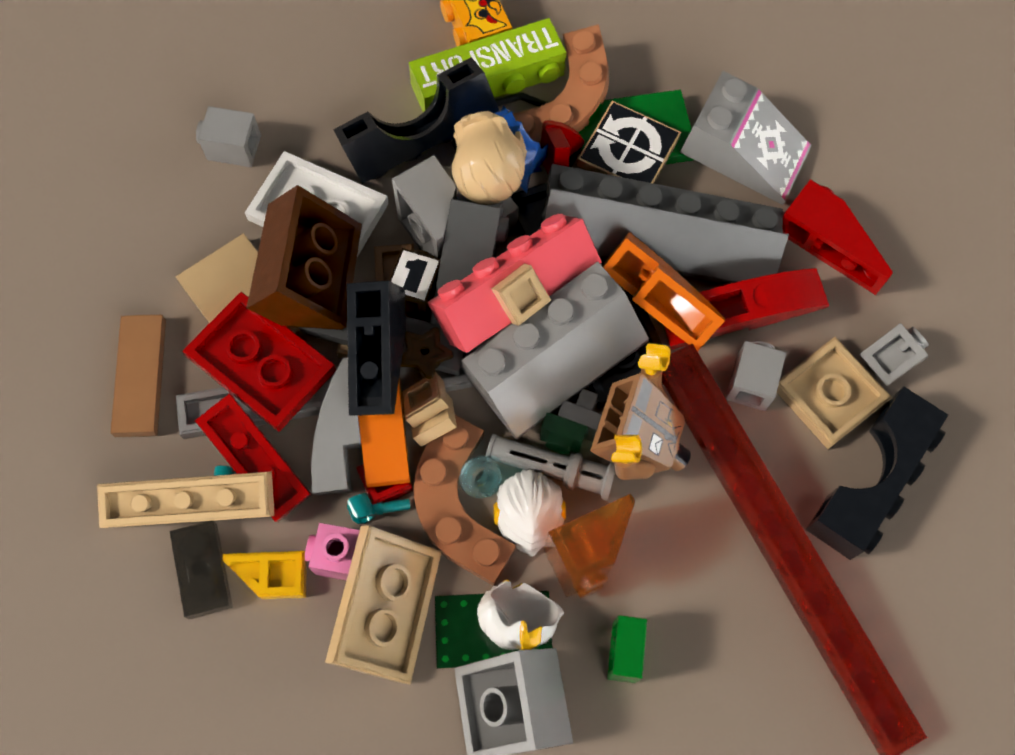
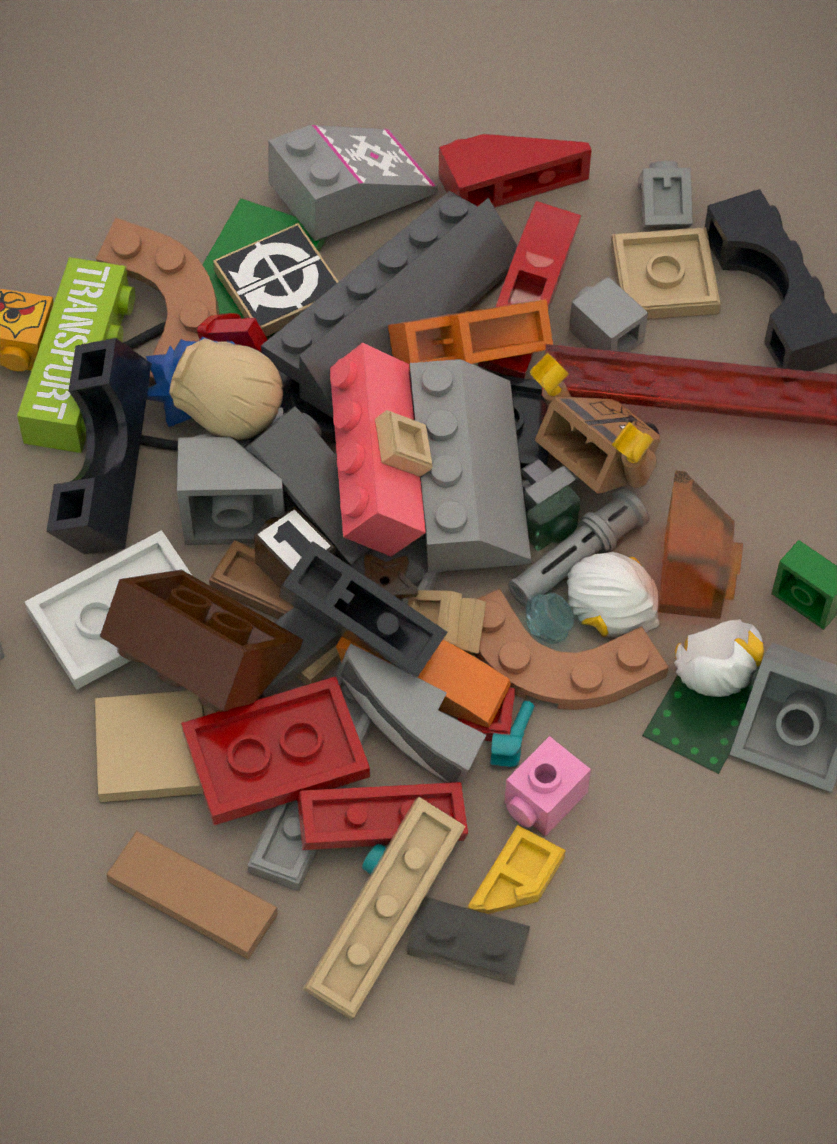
camera: 55 degrees left, 10 degrees down
(384, 606) = (631, 769): tan tile -> none

